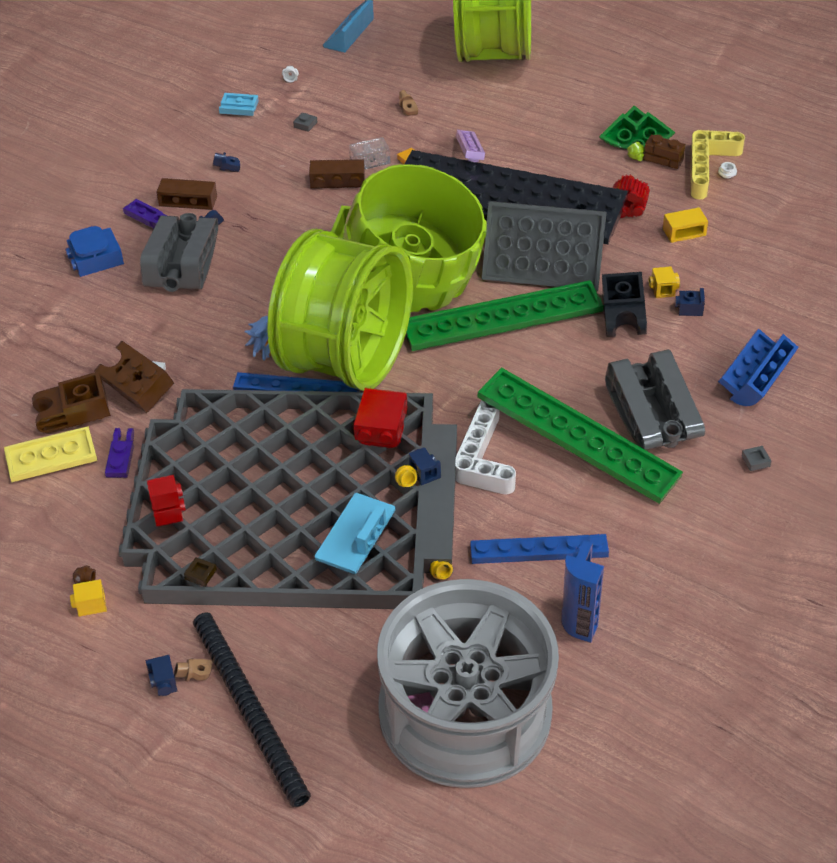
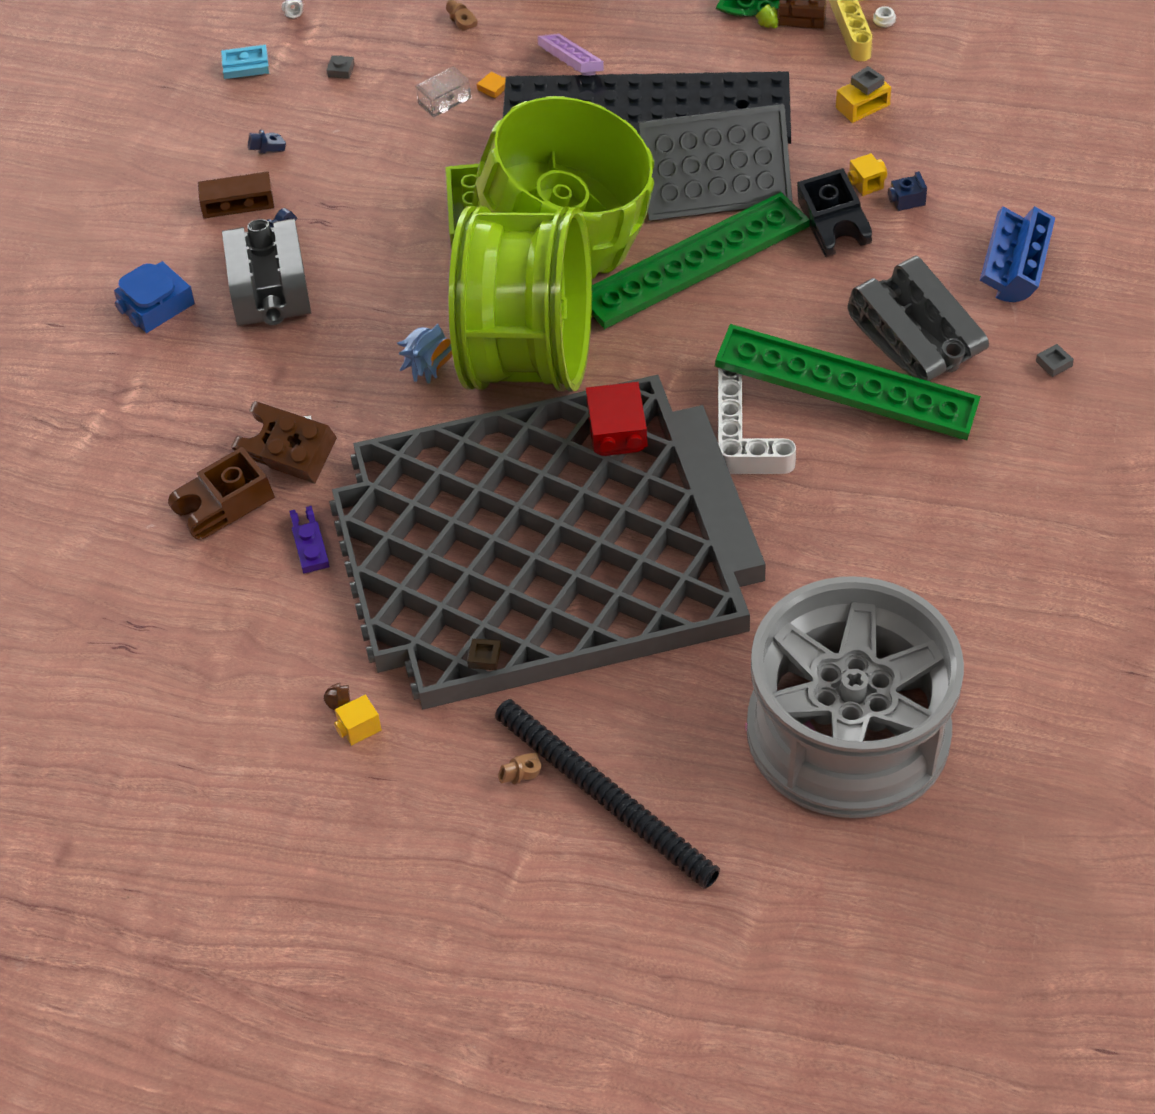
camera: 15 degrees left, 5 degrees up
(50, 454) = (222, 562): light yellow plate -> none
(143, 213) = (195, 233): dark purple hinge -> none
(161, 675) = (488, 784): dark blue brick -> none
(165, 500) = (407, 581): red piece -> none
(263, 382) = (454, 409): blue plate -> none
(336, 173) = (414, 126): reddish brown brick -> none
(355, 533) = (643, 562): medium azure bracket -> none
(406, 476) = (674, 480): yellow plate -> none
(425, 465) = (690, 463): dark blue brick -> none
(439, 571) = (753, 581): yellow plate -> none
(535, 548) = (853, 526): blue plate -> none
(582, 593) = (937, 561): blue brick -> none
(637, 195) = (798, 72): red brick -> none
(689, 211) = (867, 80): none -> dark grey plate

